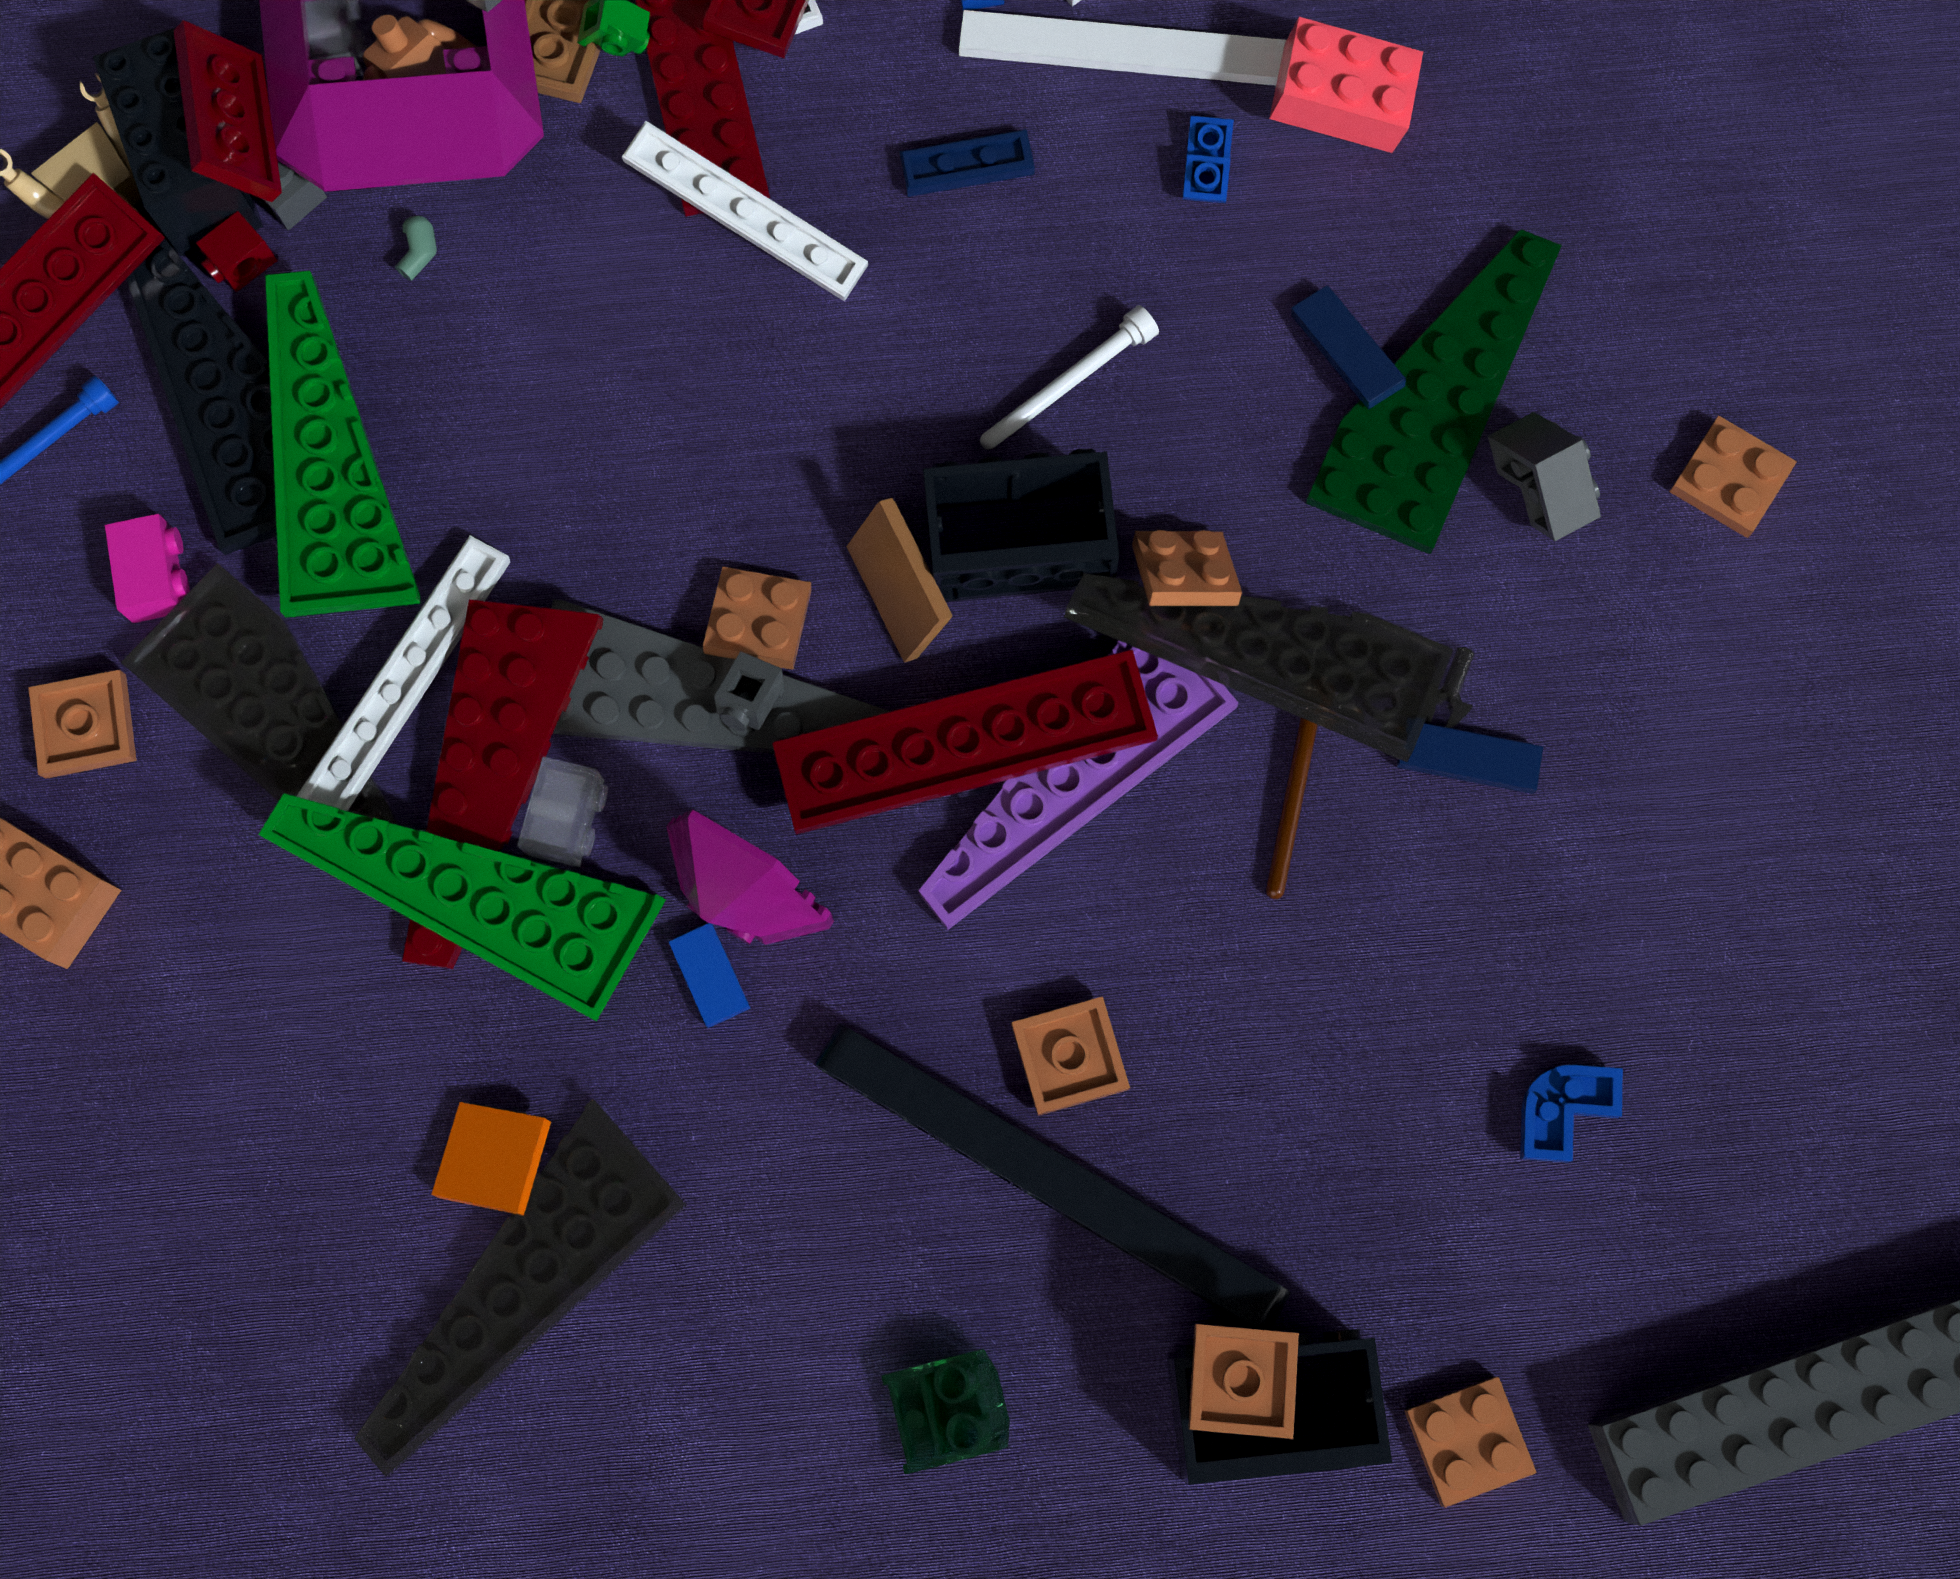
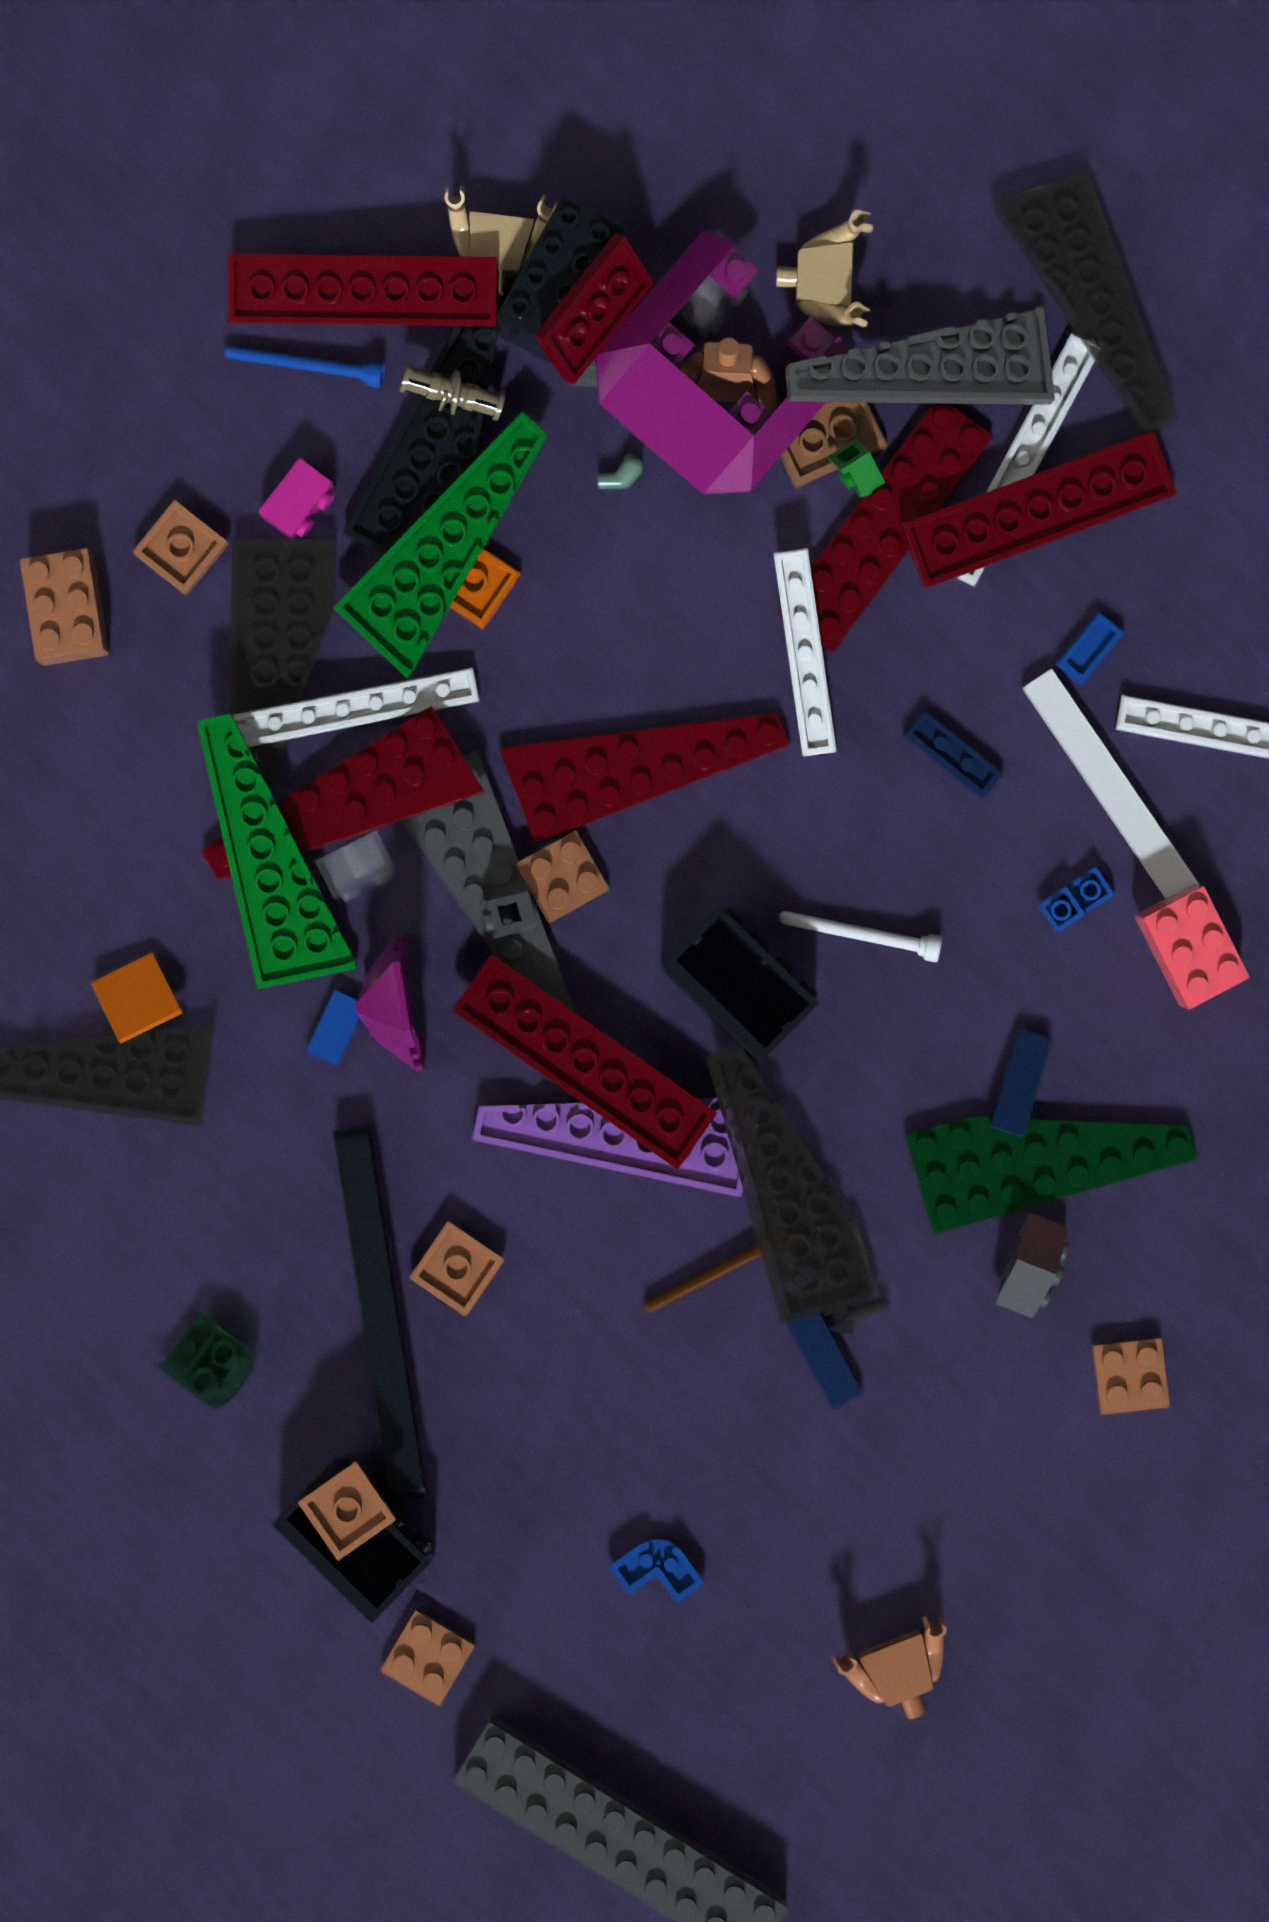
camera: 50 degrees right, 10 degrees up
(182, 325) = (452, 391): none -> dark tan piece
(235, 252) = (525, 372): dark red brick -> none
(406, 464) = (485, 589): none -> orange tile
(688, 506) = (597, 776): none -> dark red wing
(899, 580) = (648, 942): medium nougat tile -> none
(1186, 568) = (796, 1102): nougat plate -> none
(1872, 934) = (898, 1667): none -> nougat torso

